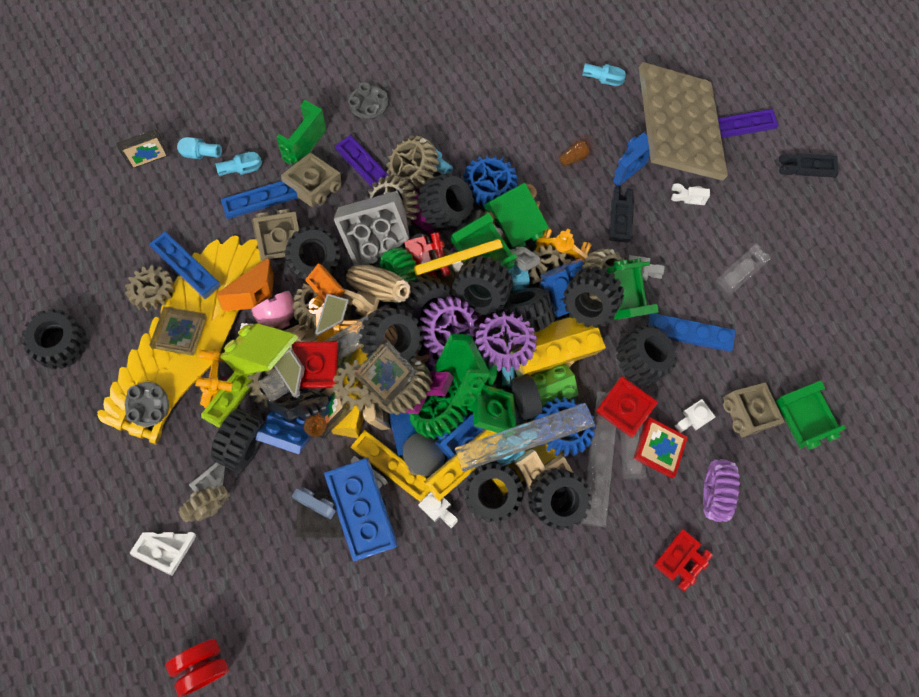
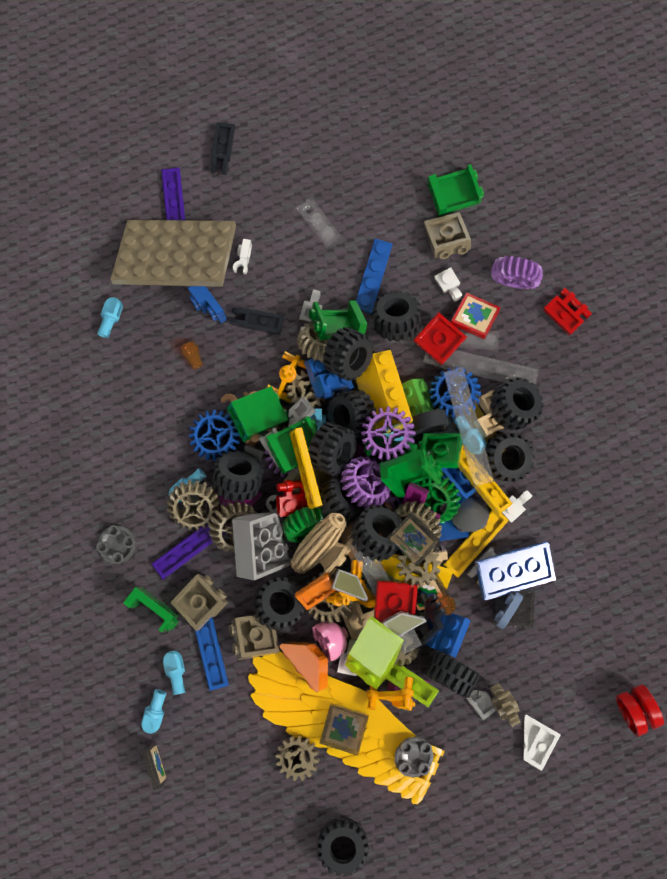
camera: 80 degrees left, 10 degrees up
(185, 265) = (276, 725): blue tile -> none

